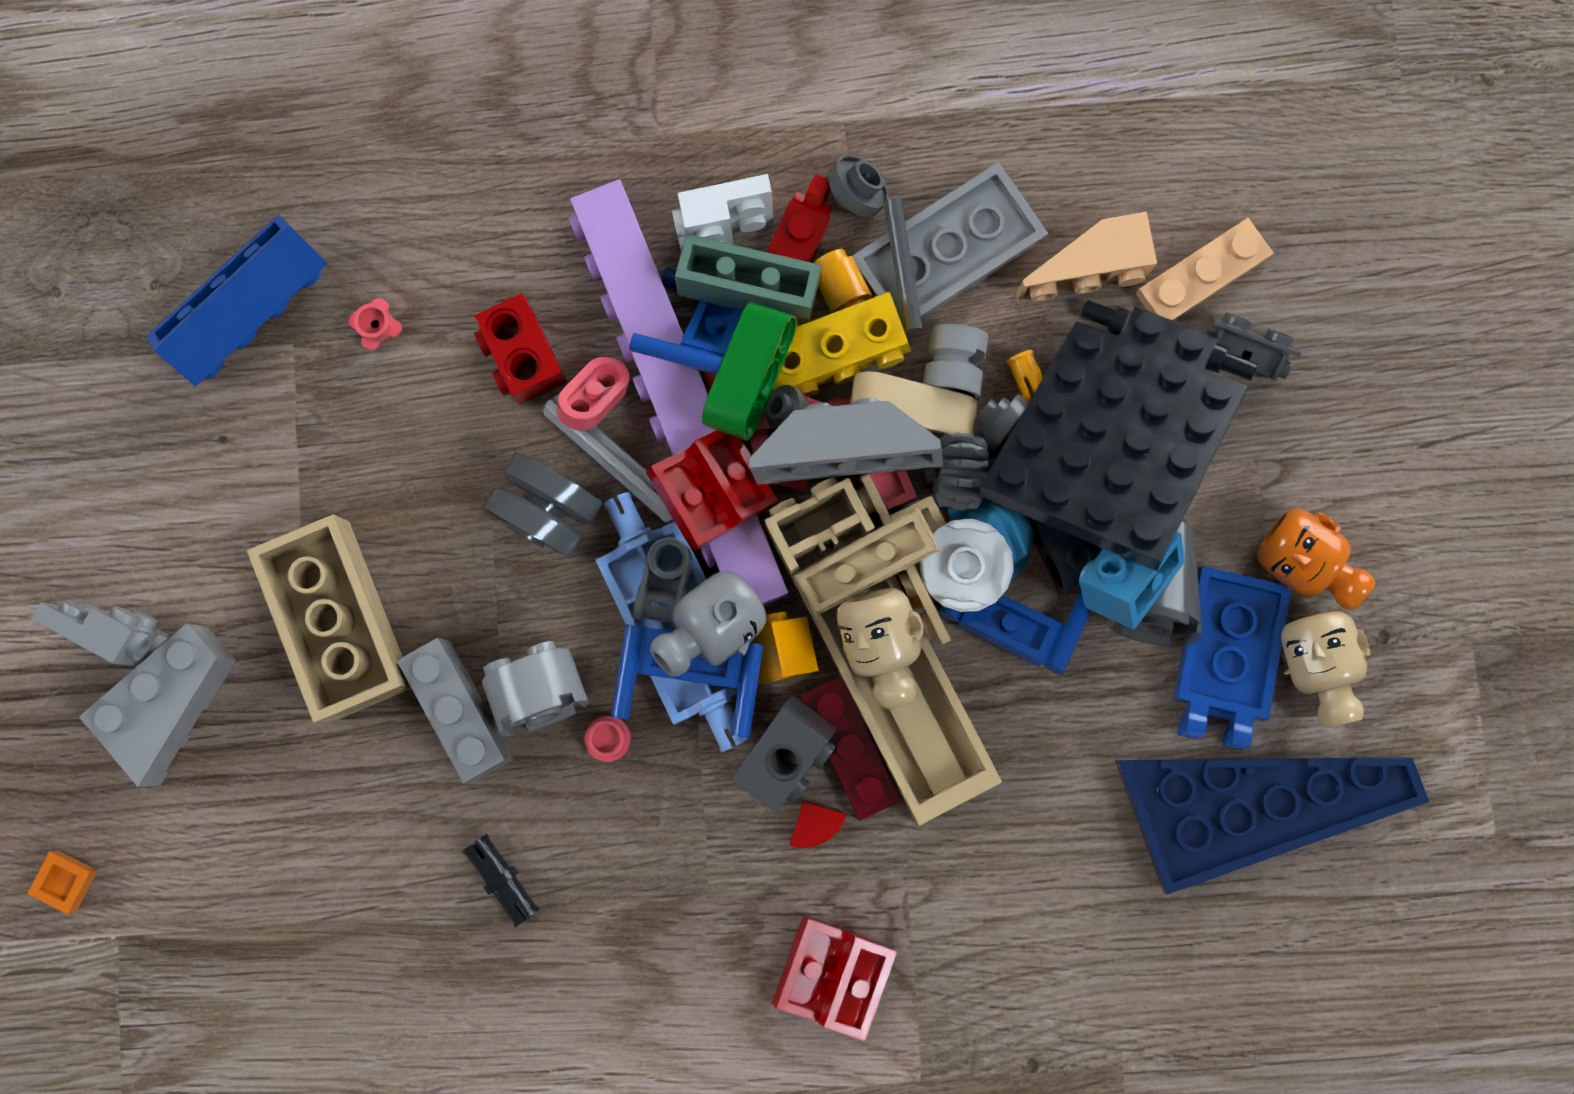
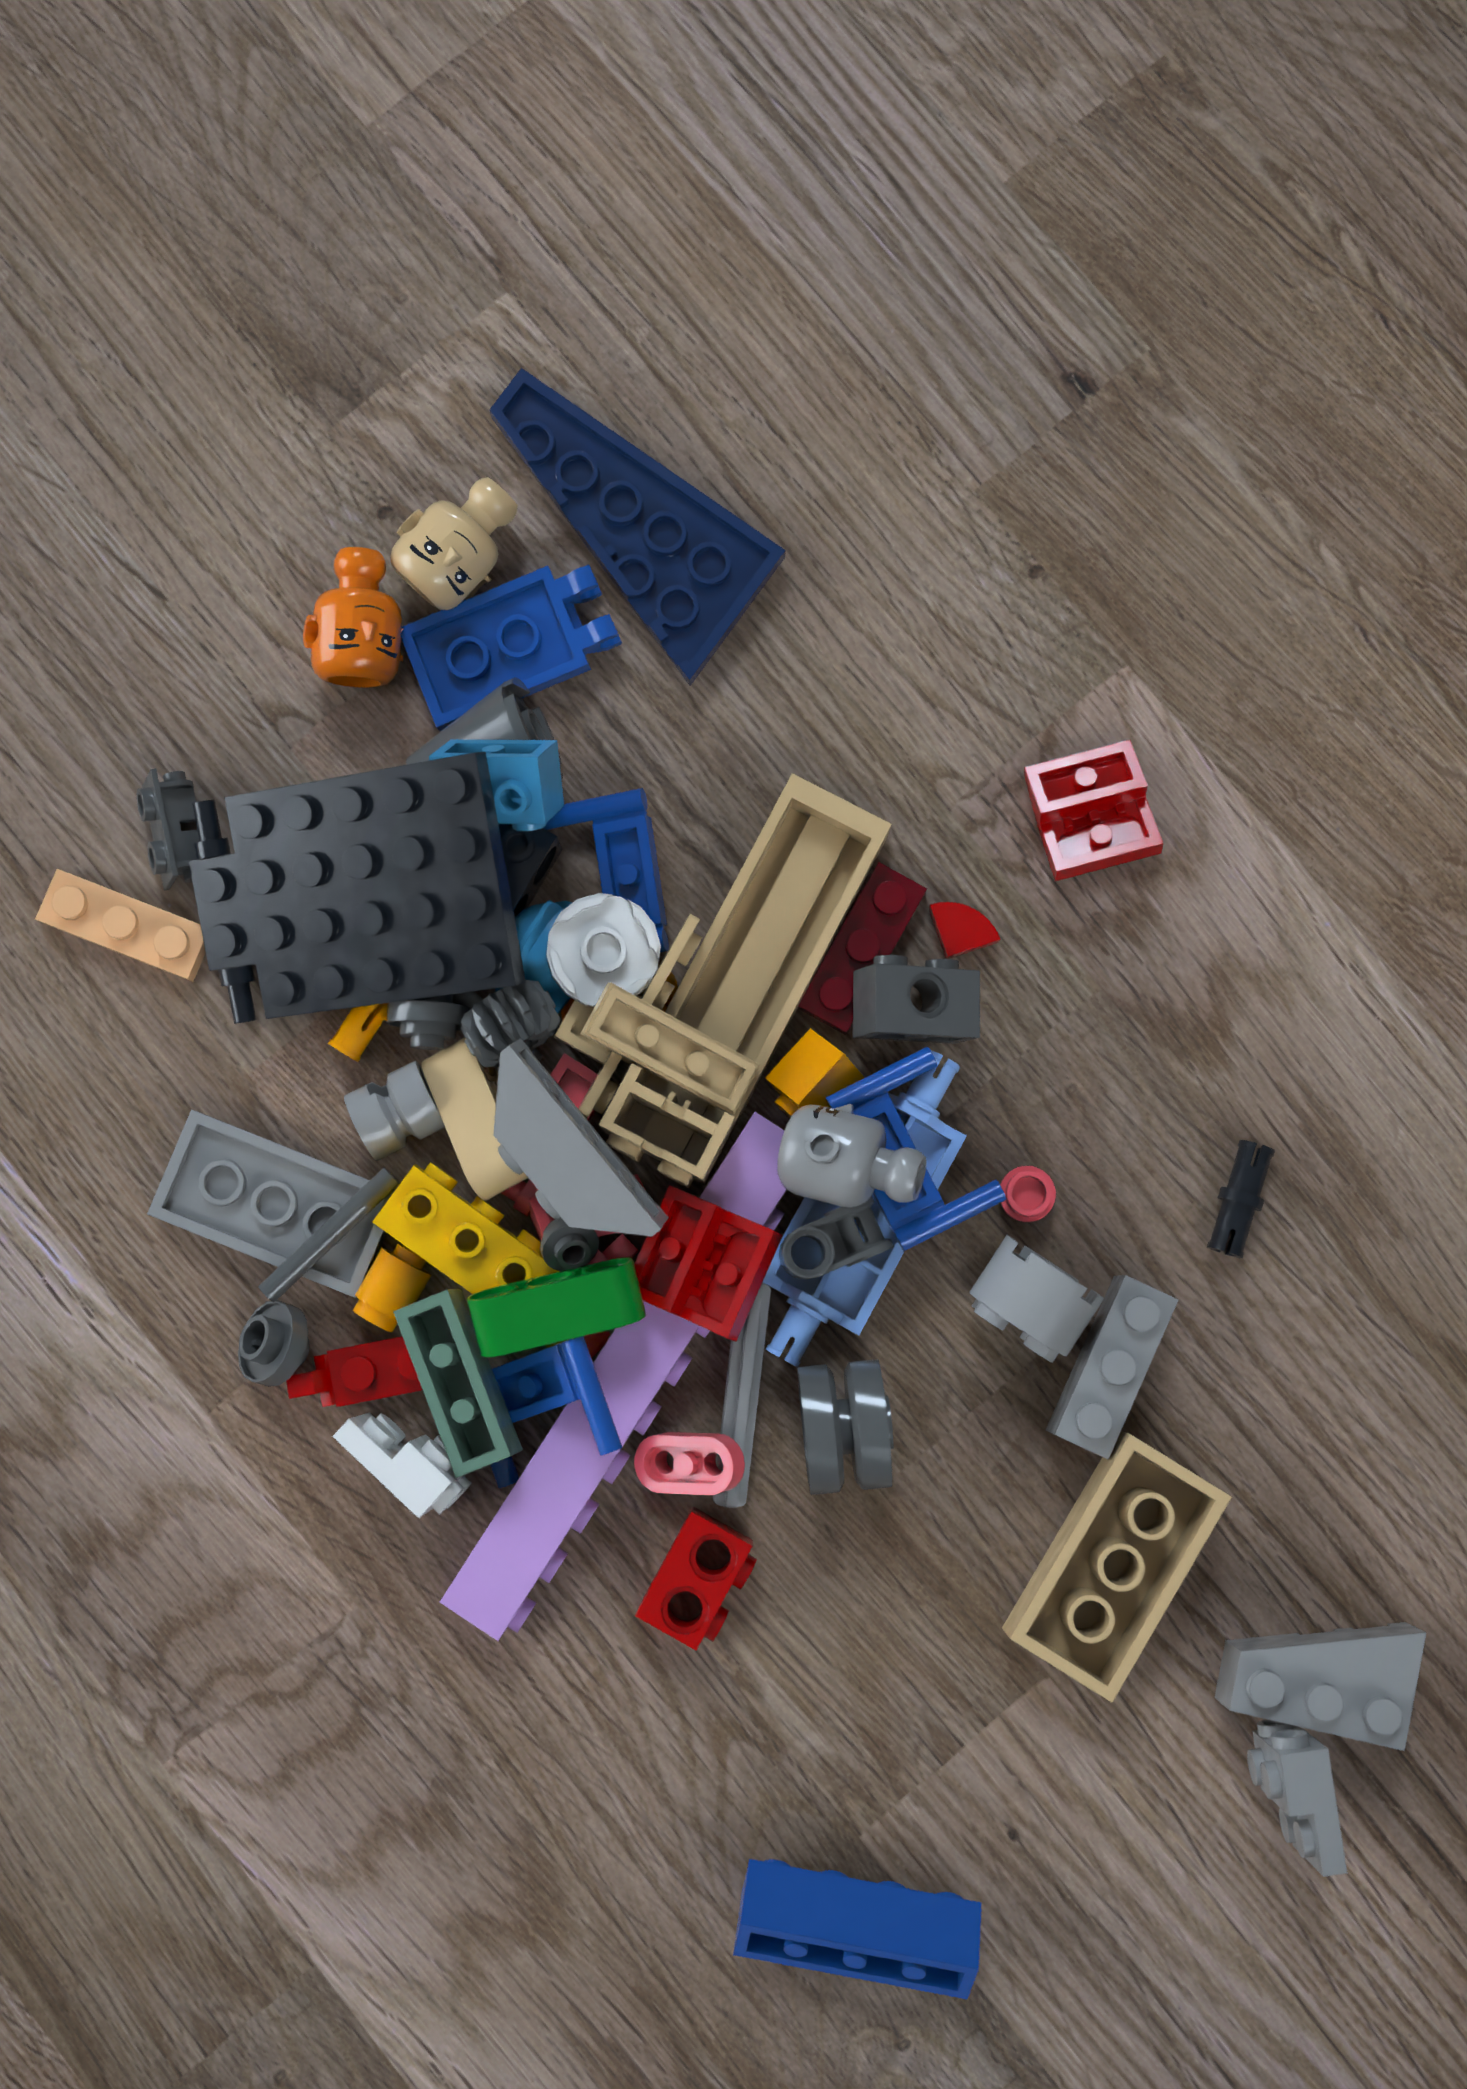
camera: 125 degrees left, 0 degrees up
(364, 317) = (779, 1776): coral plate -> none
(881, 641) = (740, 977): tan piece -> none
(1109, 252) = (168, 1034): light nougat slope -> none

